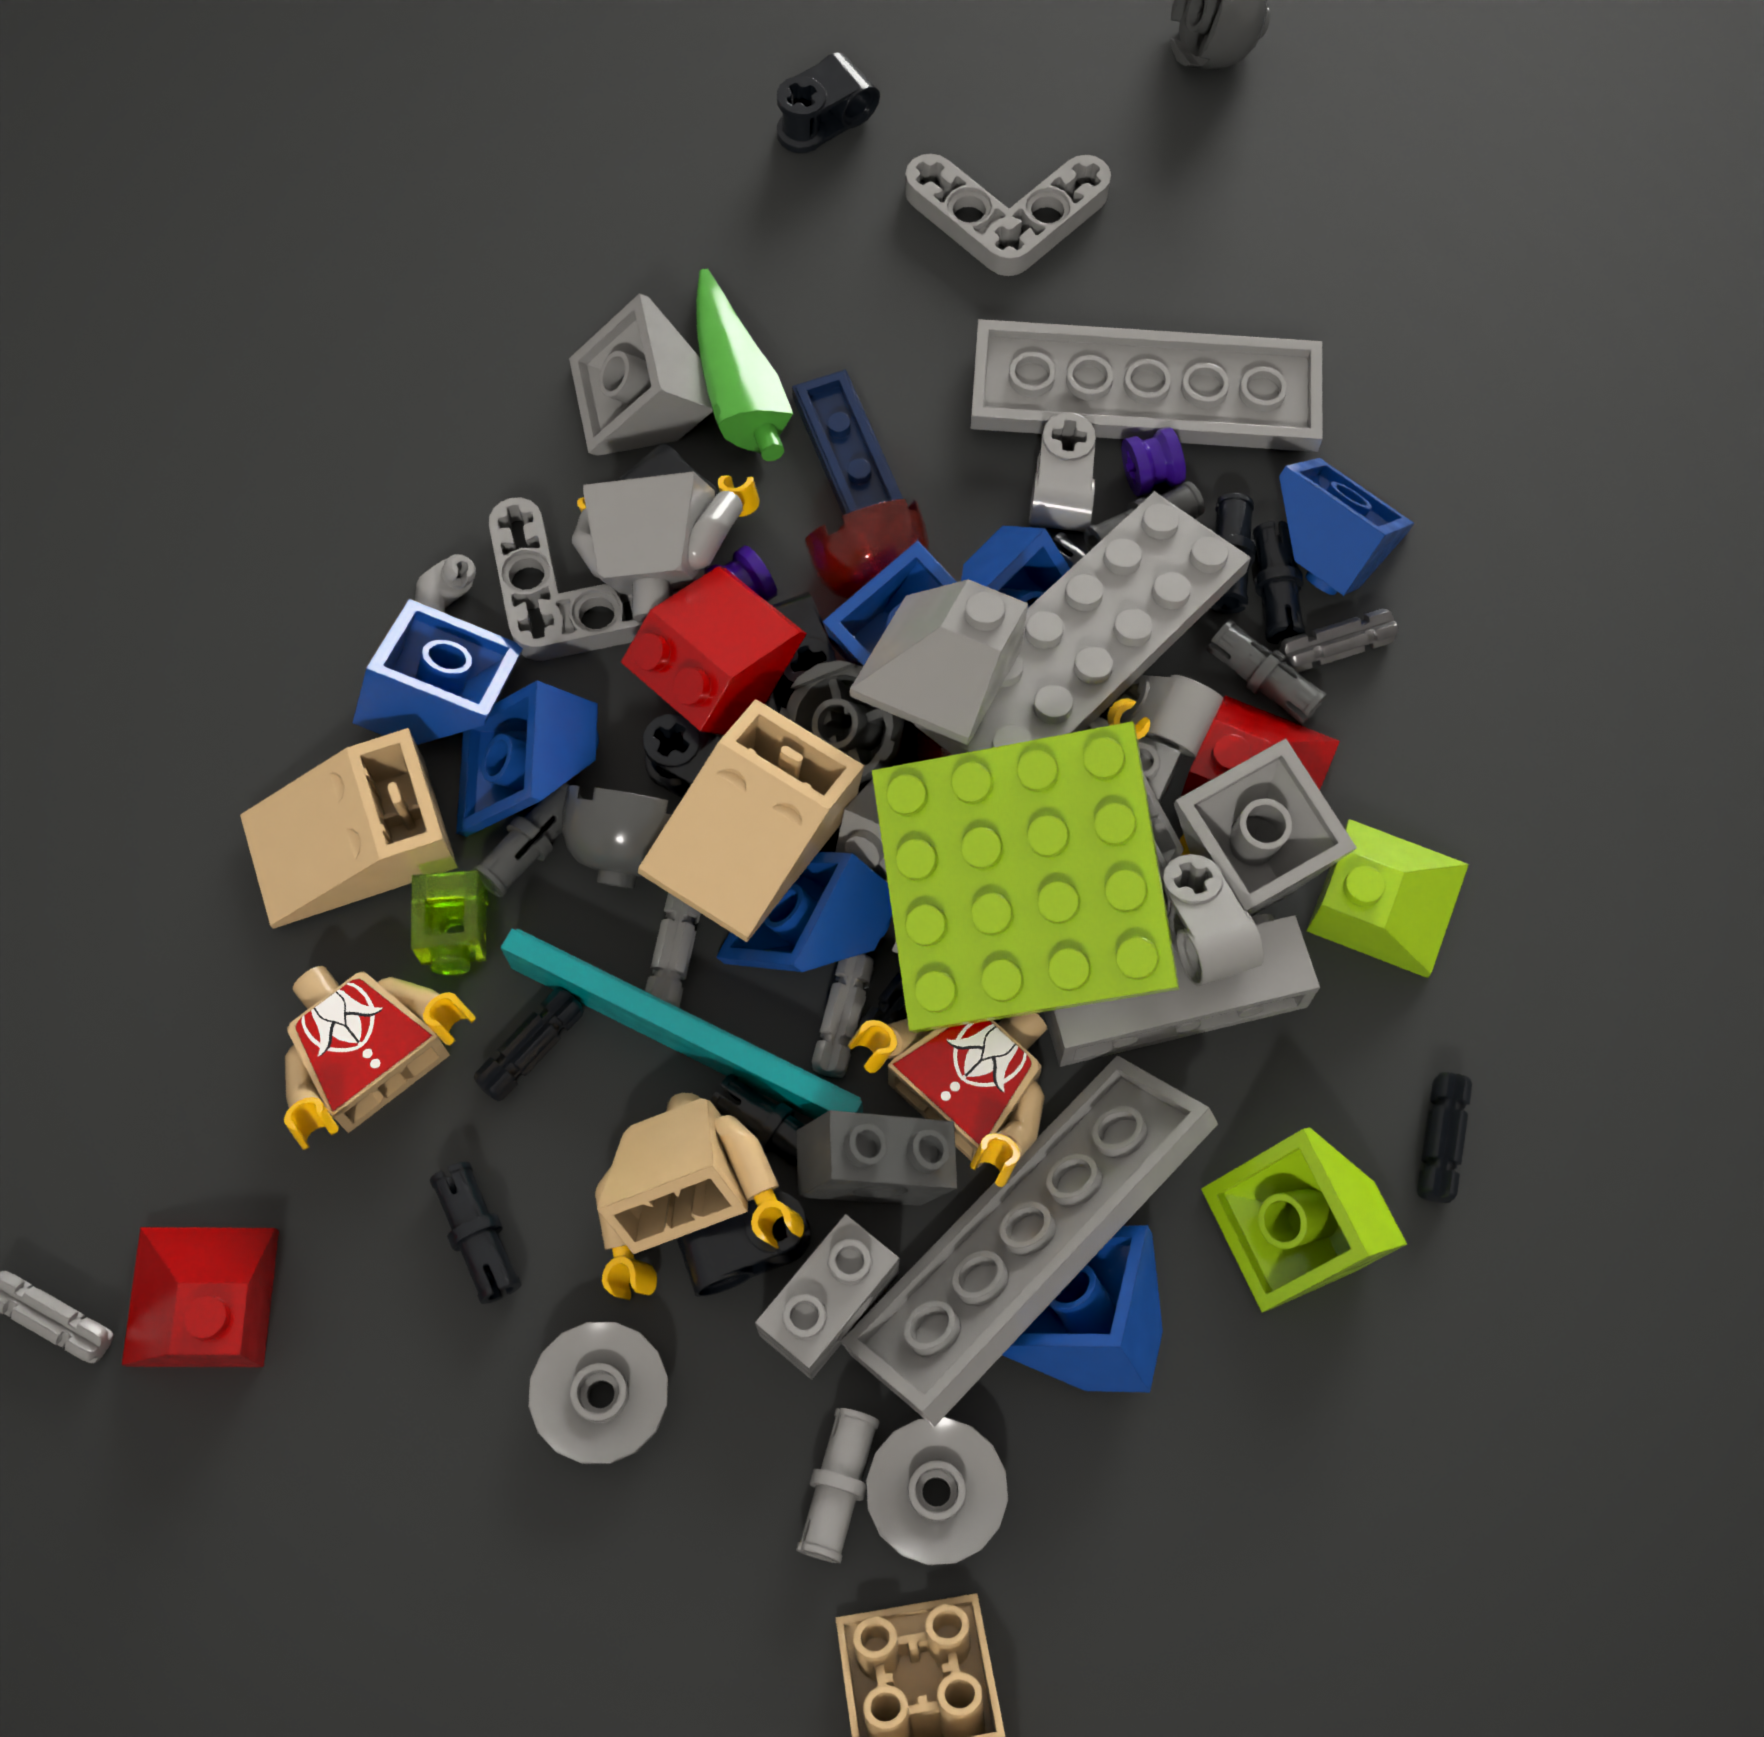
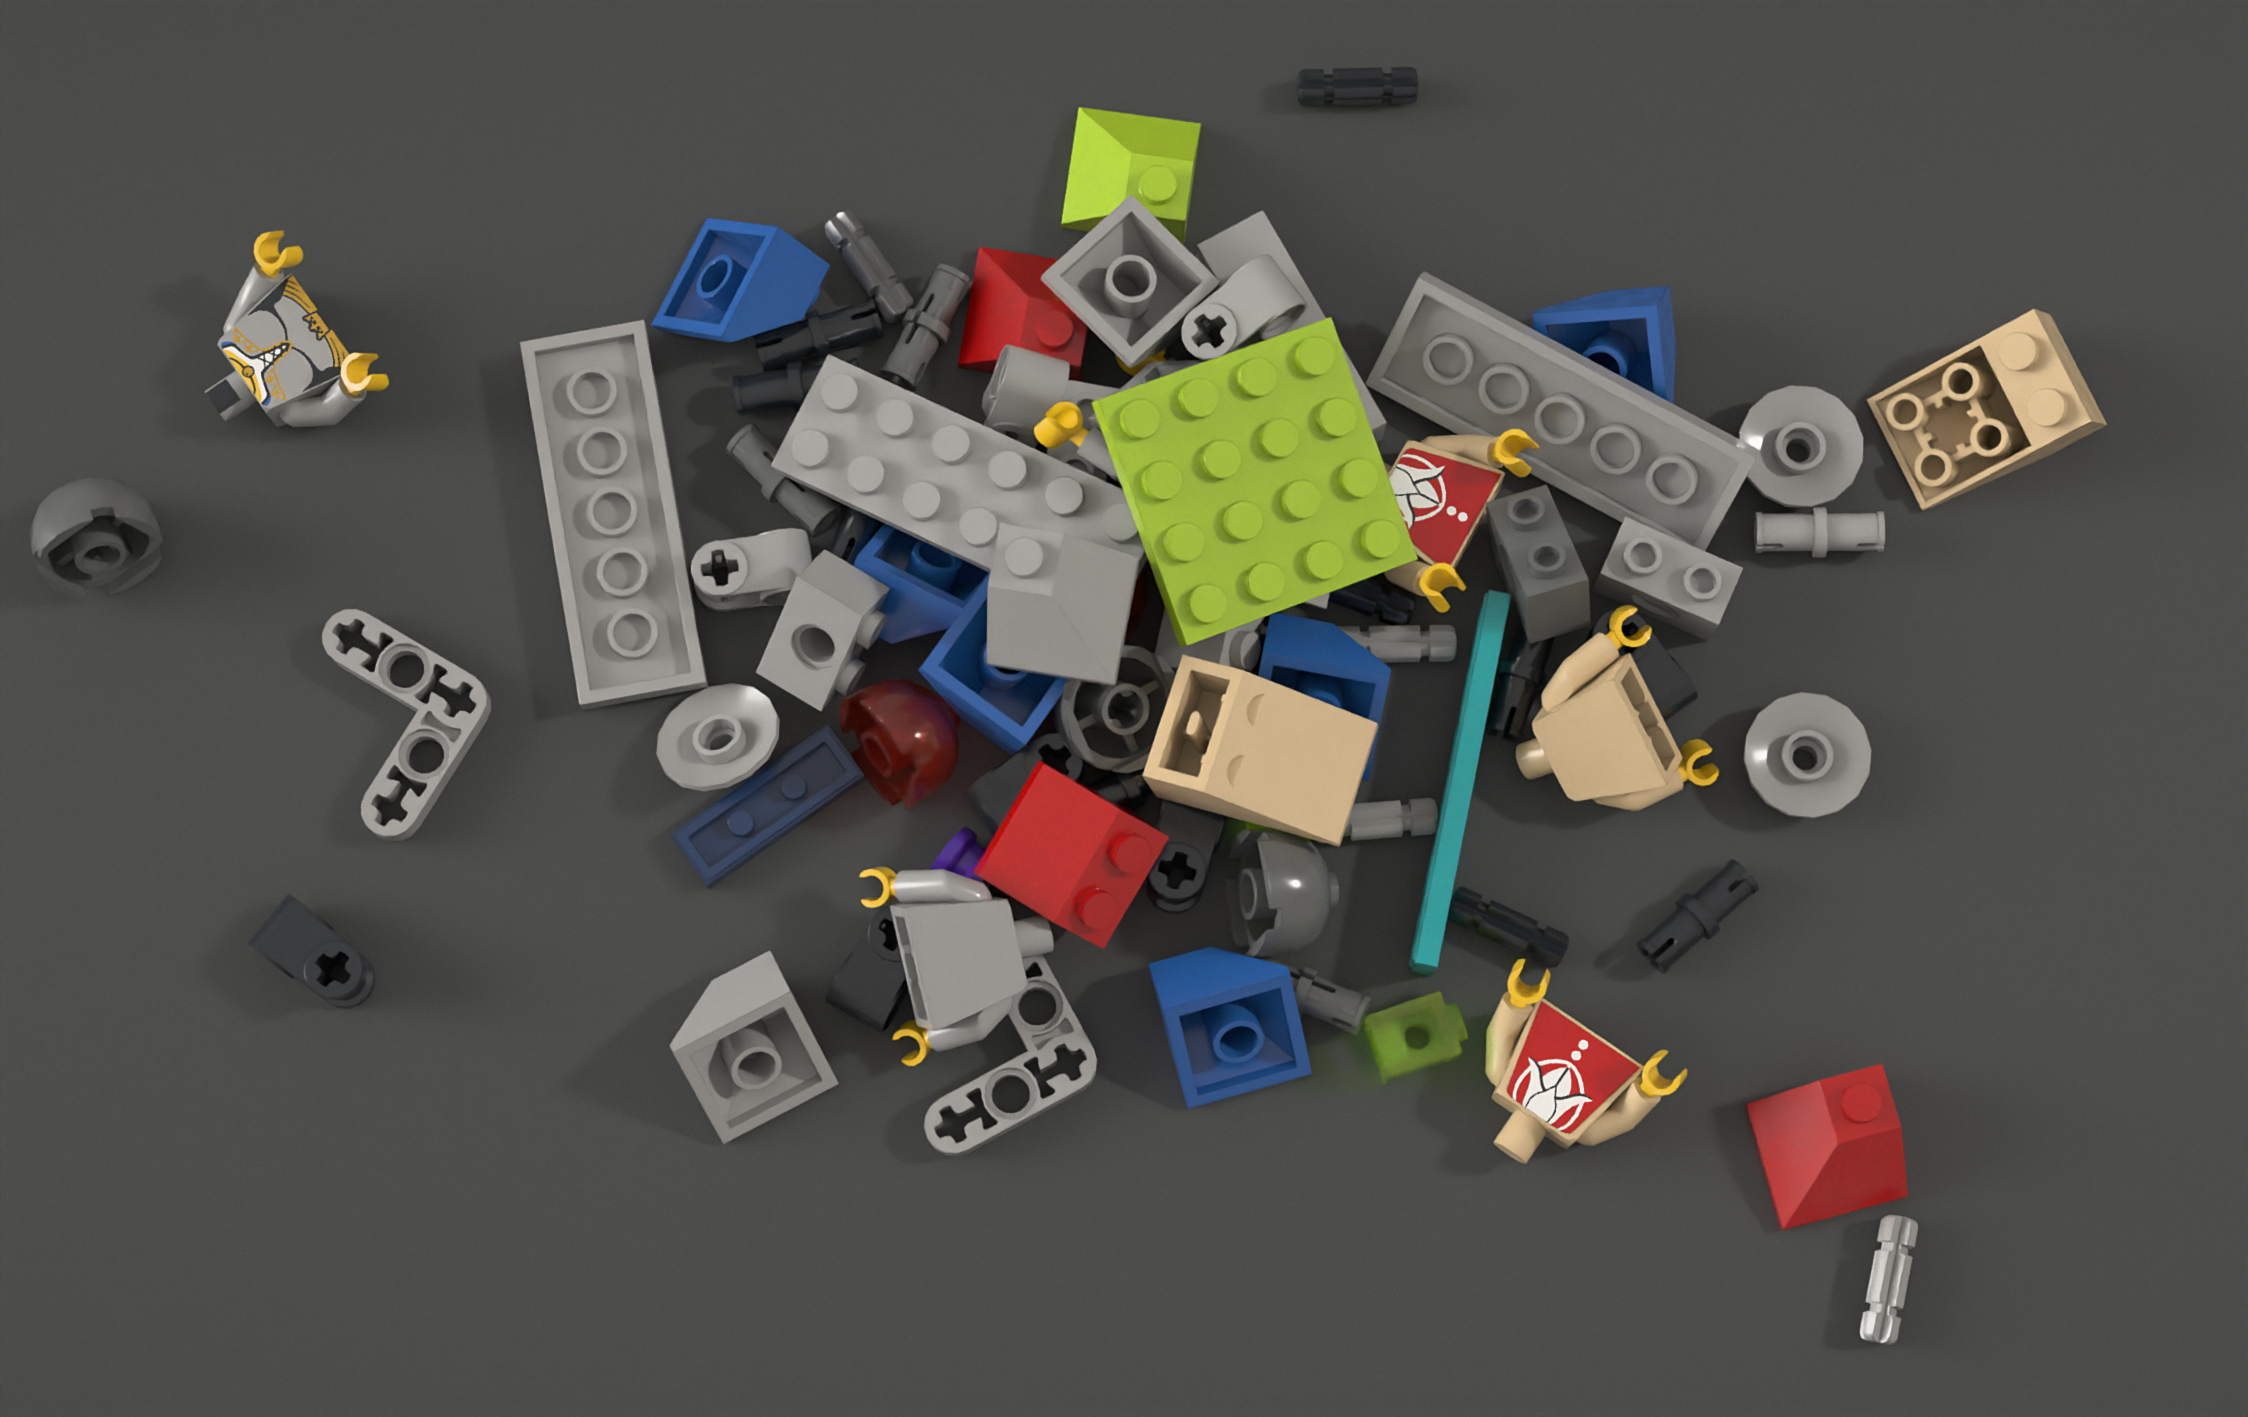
camera: 105 degrees left, 10 degrees up
(347, 830) = (1353, 1170): tan slope -> none
(434, 676) = (1162, 1137): blue slope -> none
(445, 582) = (1048, 1183): light grey arm -> none
(737, 376) = (719, 938): bright green piece -> none
(918, 414) = (718, 737): none -> light grey dish
(988, 501) = (824, 630): none -> light grey brick
(1153, 461) = (711, 484): dark purple wheel -> none
(1301, 1218) = (1479, 190): lime slope -> none
(1355, 174) = (287, 350): none -> torso

